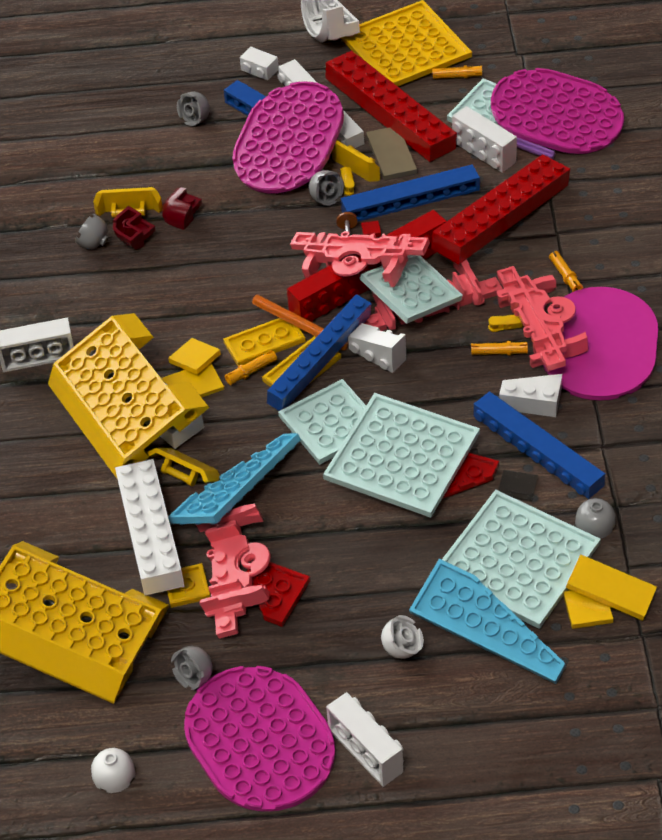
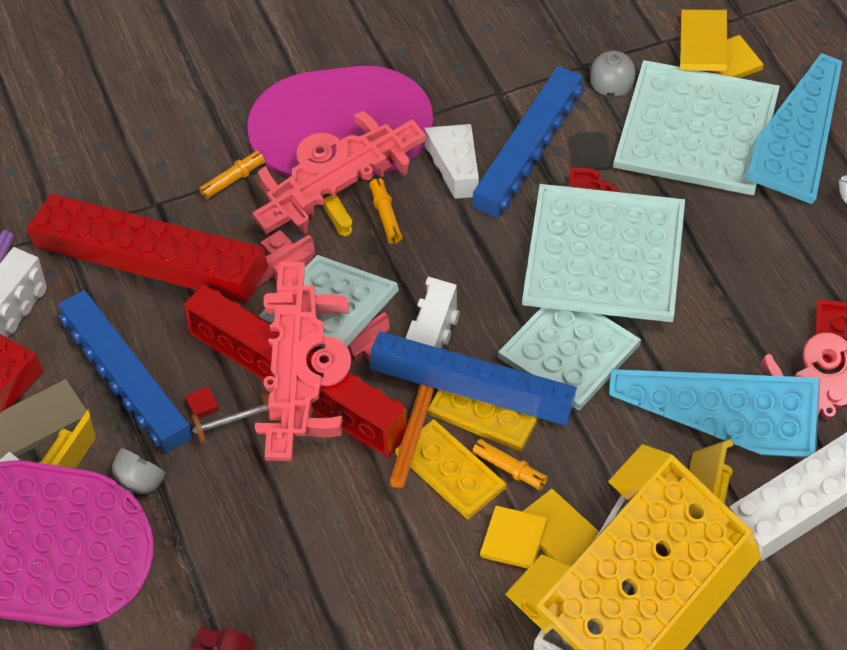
camera: 110 degrees left, 5 degrees up
(346, 174) = (104, 457): yellow bar -> none

